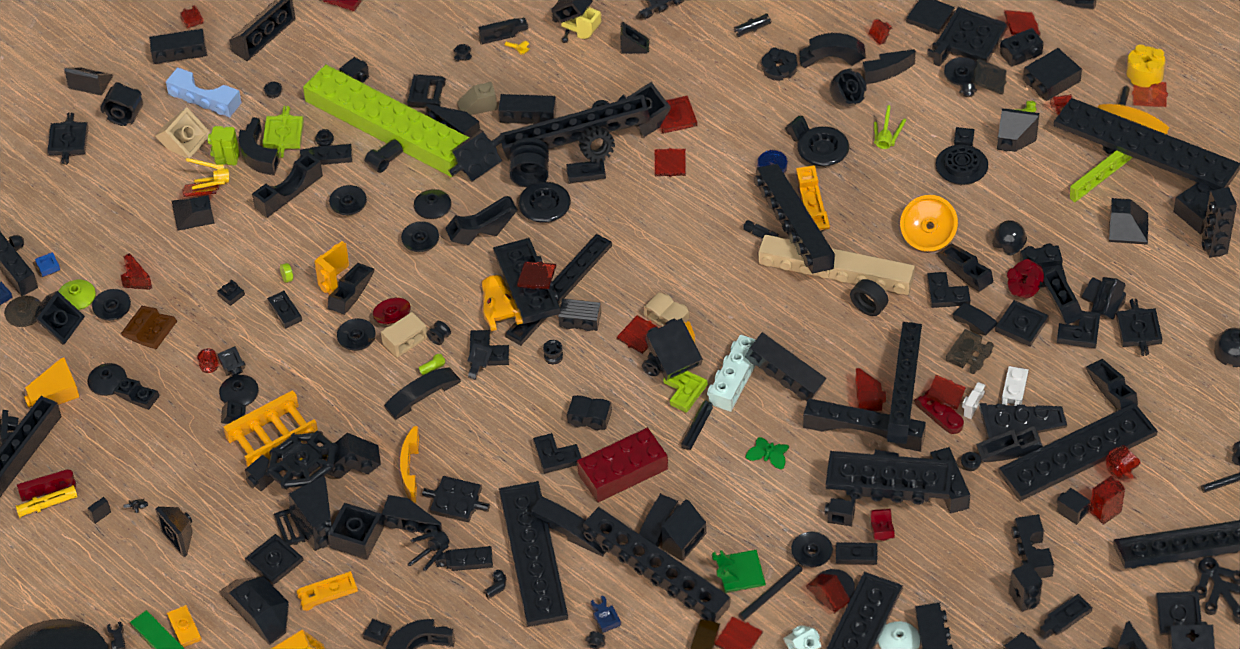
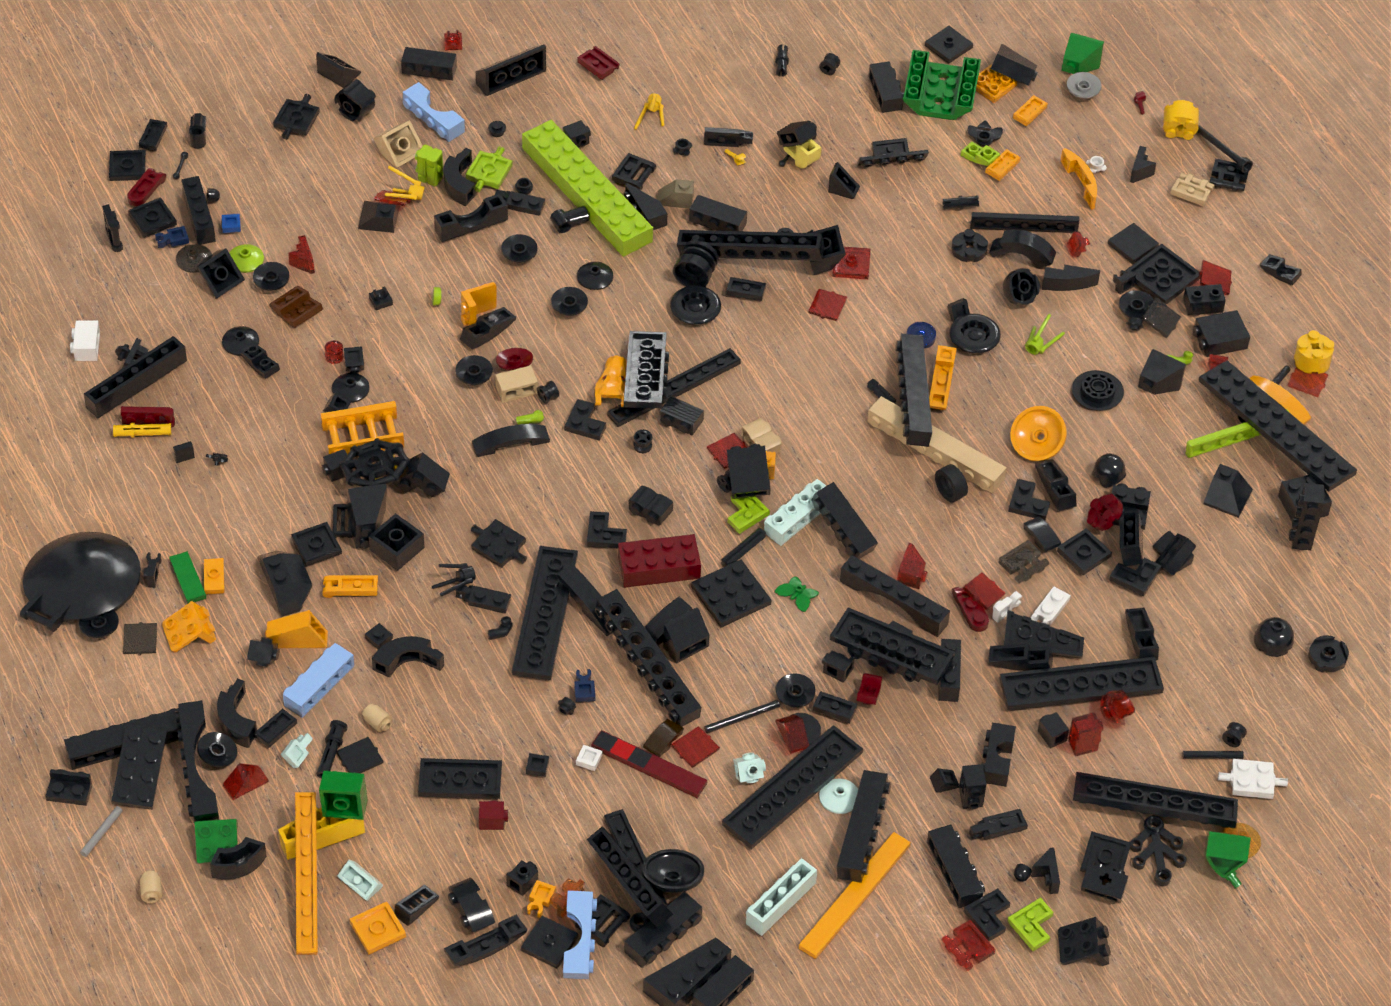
camera: 15 degrees right, 0 degrees up
(53, 384) = (191, 330): light orange slope -> none
(175, 527) = (243, 488): black slope -> none
(284, 309) = (421, 328): black plate -> none
(407, 515) = (447, 542): black slope -> none
(409, 447) = (478, 483): light orange slope -> none
(416, 20) = (653, 105): none -> yellow plant
(476, 155) = (650, 243): black plate -> none
(479, 358) = (572, 425): black plate -> none
(487, 221) = (636, 306): black arch -> none
(536, 275) = (655, 367): clear red piece -> none
(589, 137) = (759, 276): black tyre -> none
(705, 474) = (731, 593): none -> black plate
(739, 570) = (721, 687): green plate -> none
(821, 25) = (1024, 222): none -> black tile
(904, 383) = (945, 569): black brick -> none
(964, 136) = (1112, 365): black plate -> none
(971, 465) = (978, 664): black plate -> none
(991, 590) = (944, 780): none -> black slope
(1139, 327) = (1192, 590): black plate -> none

